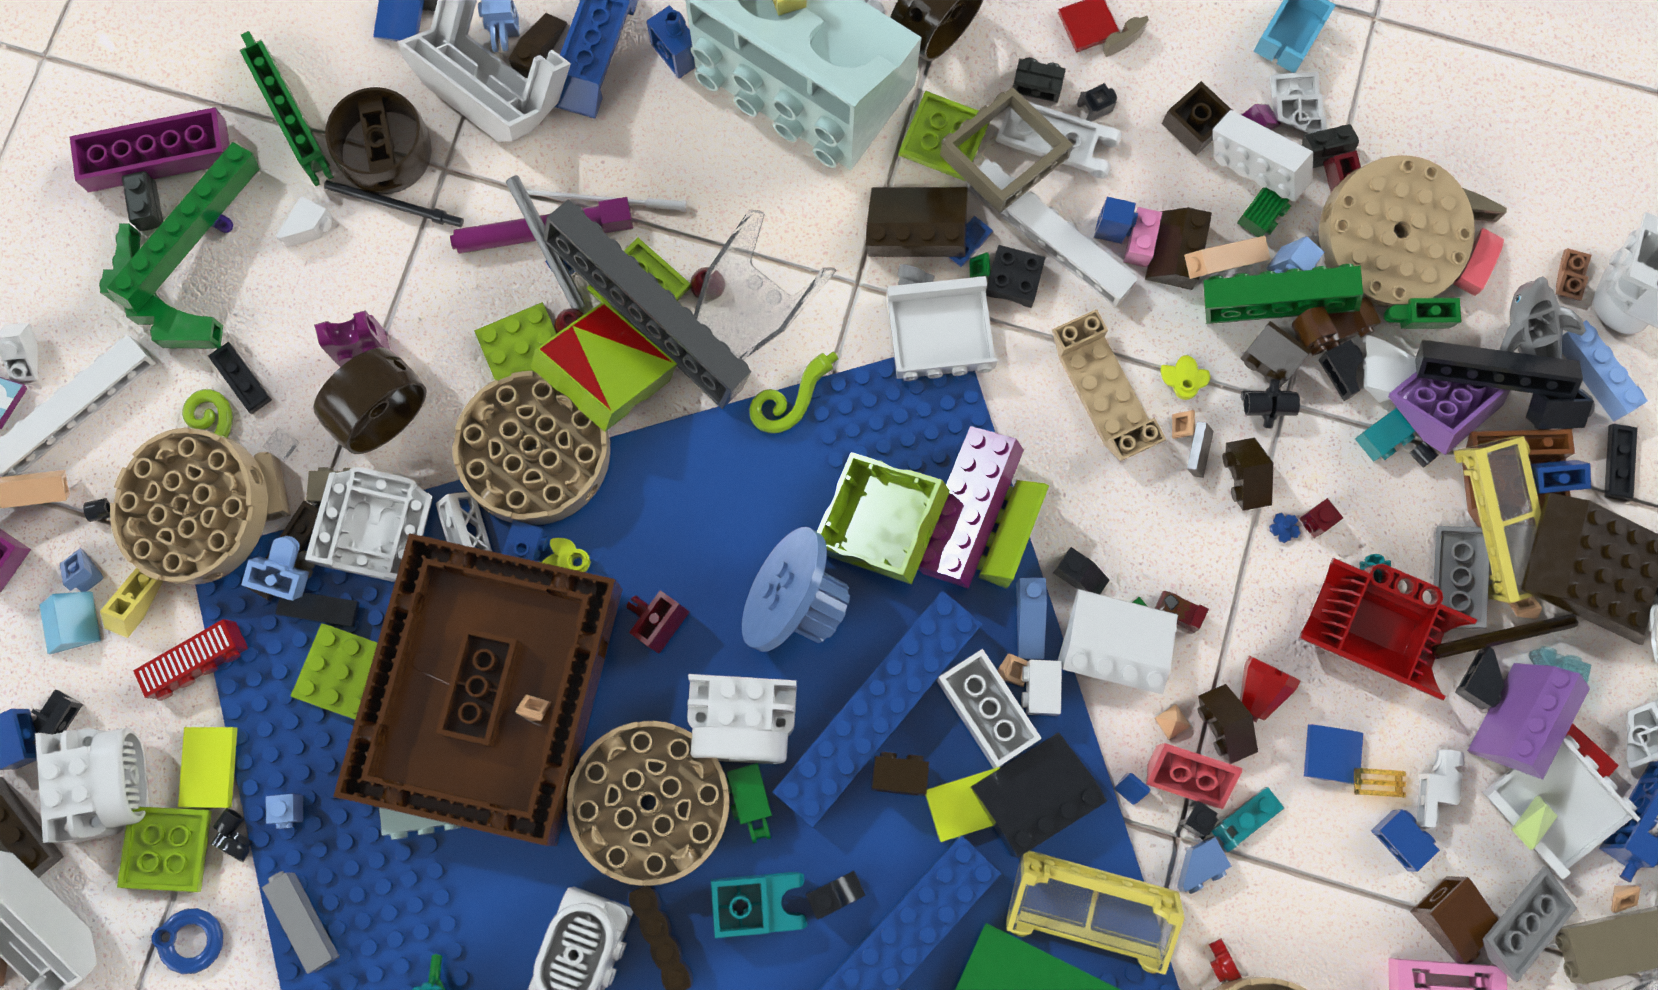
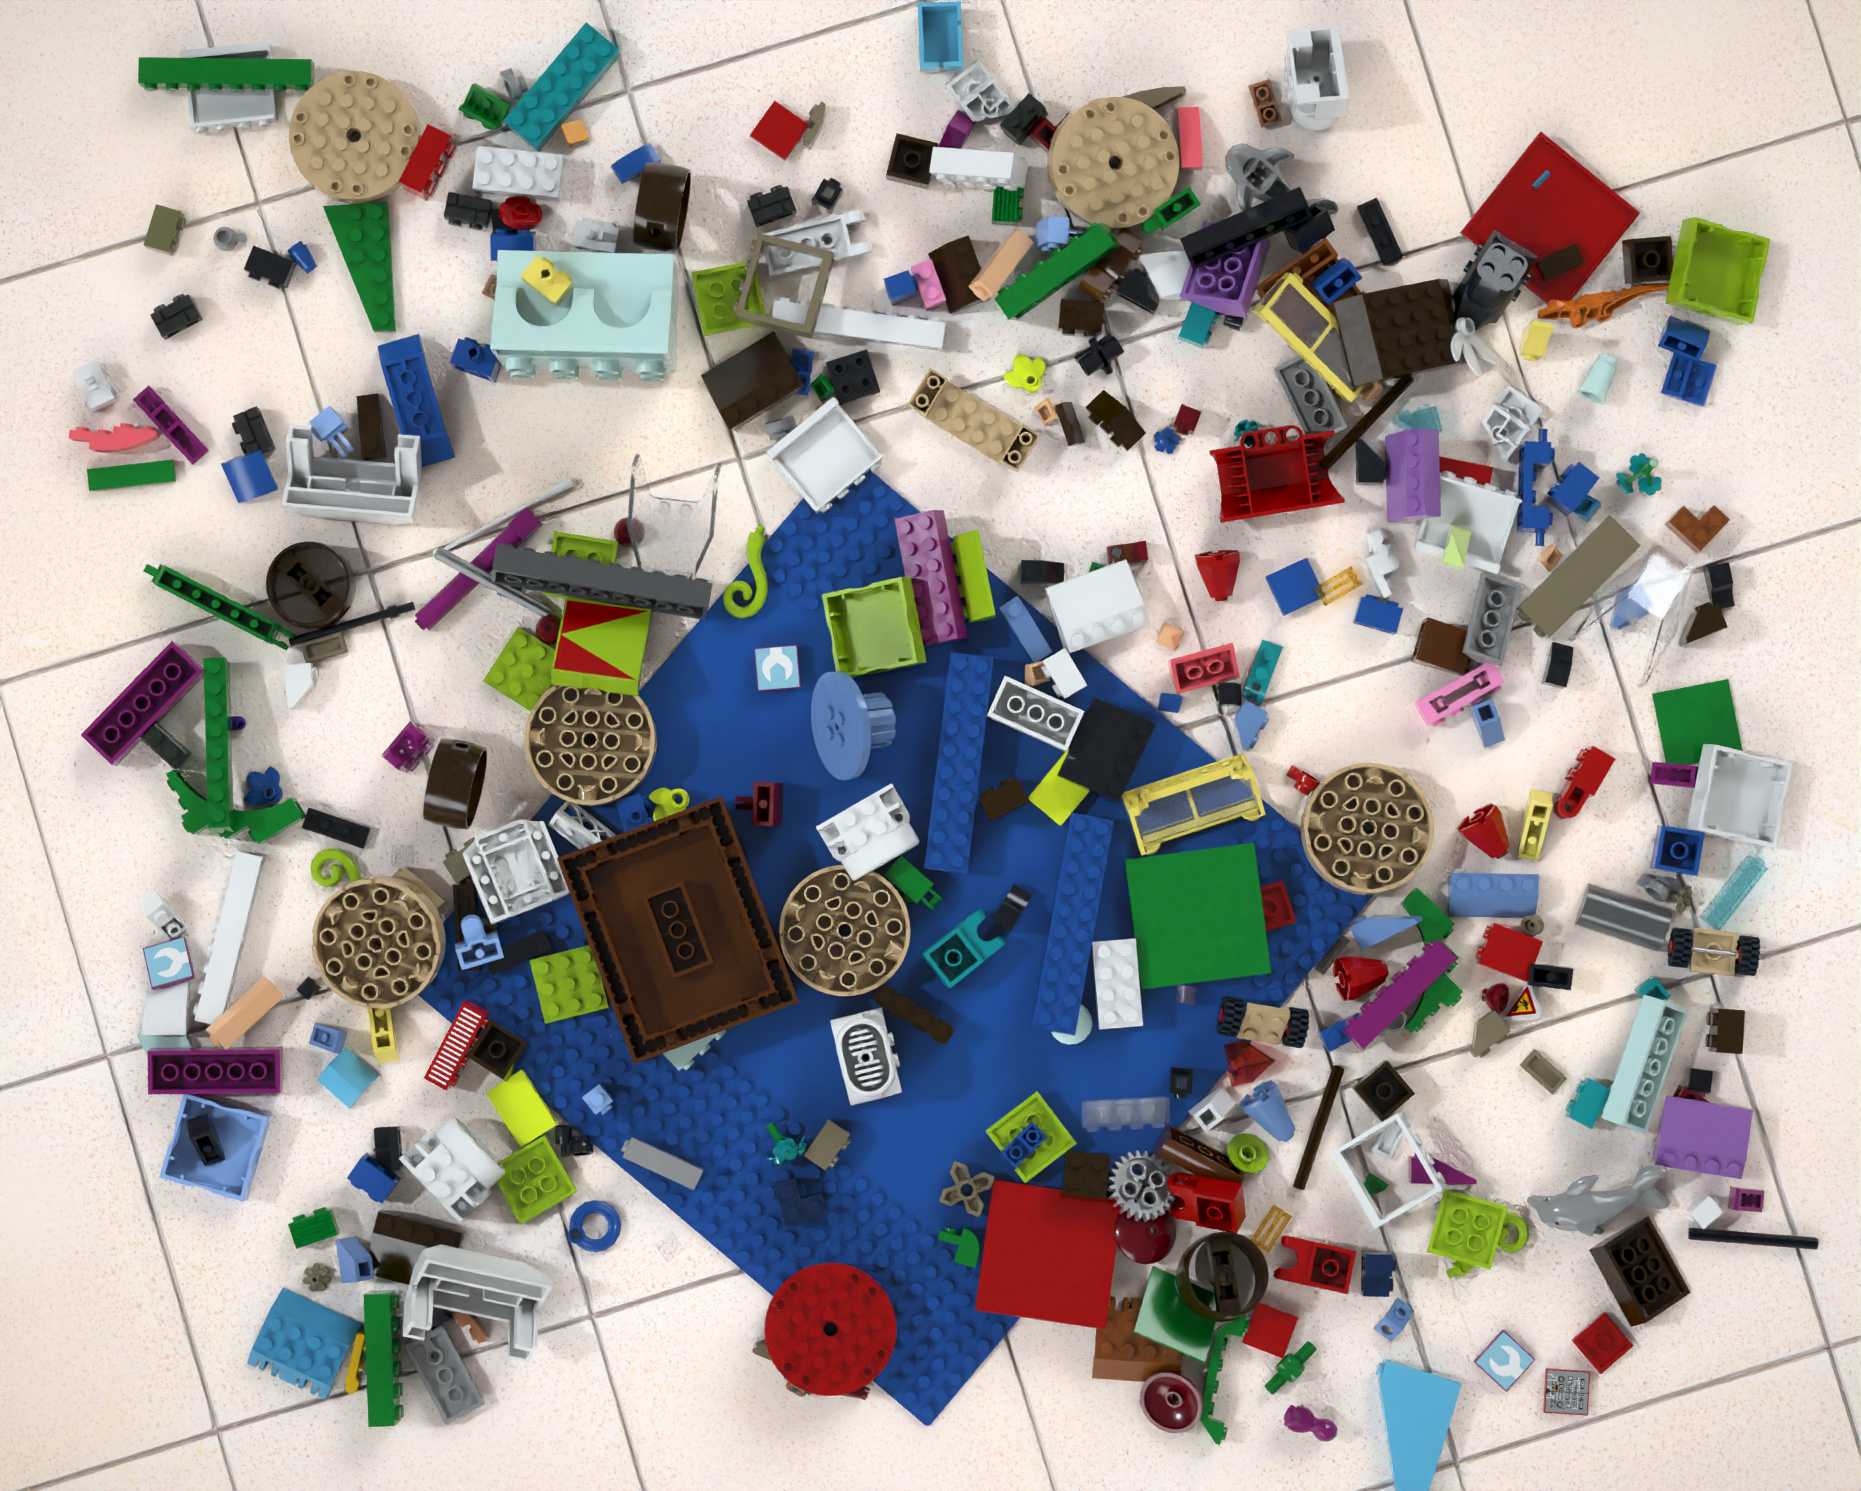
camera: 30 degrees left, 10 degrees up
(202, 297) = (261, 785): none -> blue plate
(222, 692) = (498, 1050): none -> dark brown brick
(353, 209) = (324, 647): none -> dark tan tile
(533, 708) = (724, 919): light nougat slope -> none
(760, 498) = (777, 668): none -> medium azure tile
(1229, 722) = (1208, 614): dark brown brick -> none
(1603, 372) = (1326, 171): light blue brick -> none

